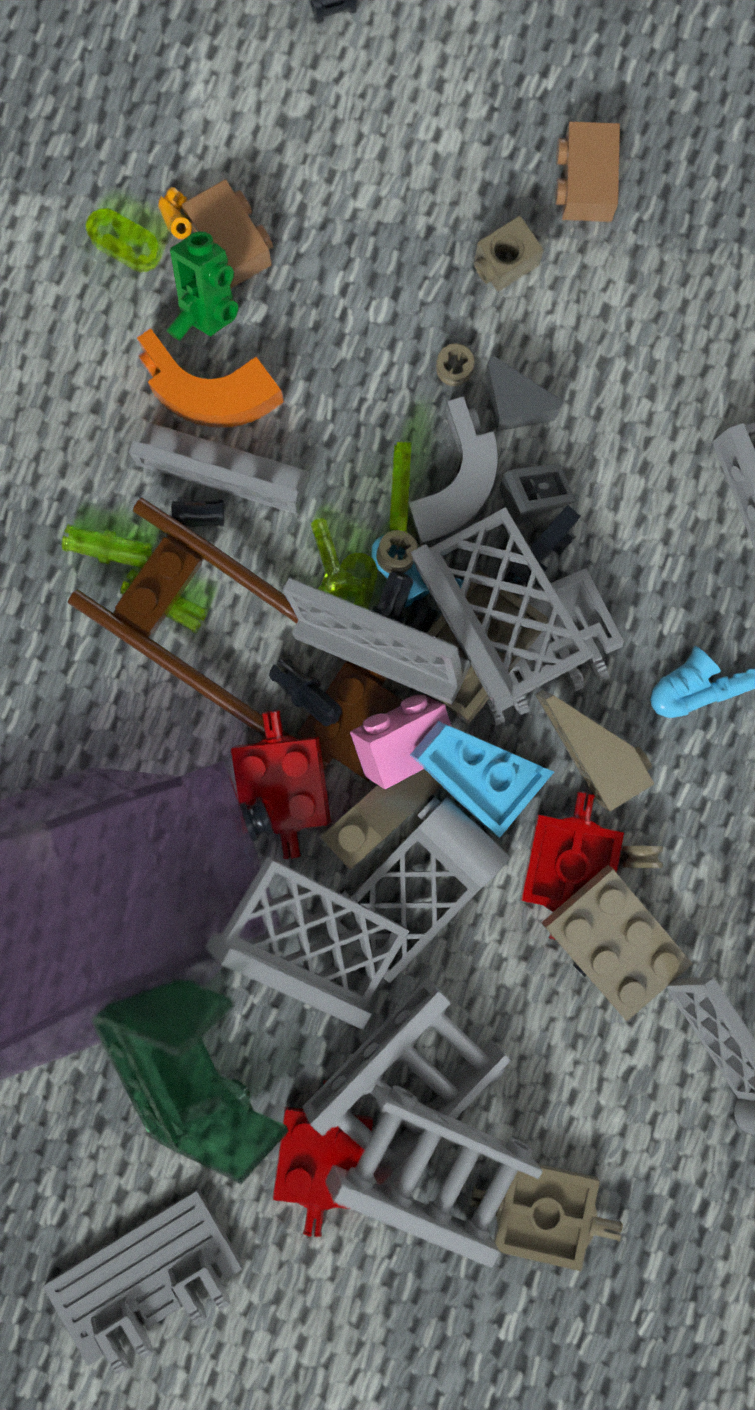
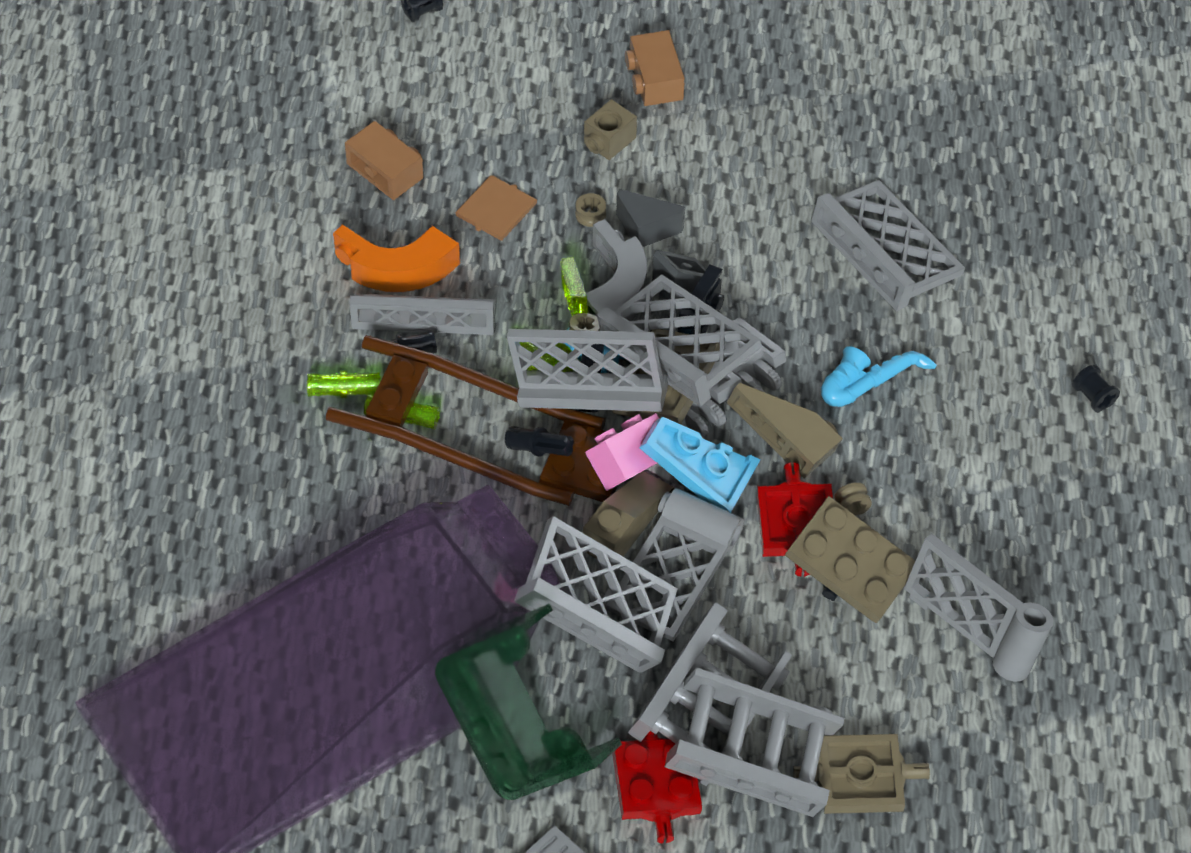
camera: 15 degrees left, 30 degrees down
(118, 247) = (300, 182): clear neon green beam -> none
(170, 208) = (337, 156): light orange arm -> none
(202, 286) = (377, 187): green brick -> none
(256, 818) = (530, 521): black bush -> none
(287, 777) = (537, 497): red plate -> none
(346, 331) = (496, 207): none -> medium nougat piece

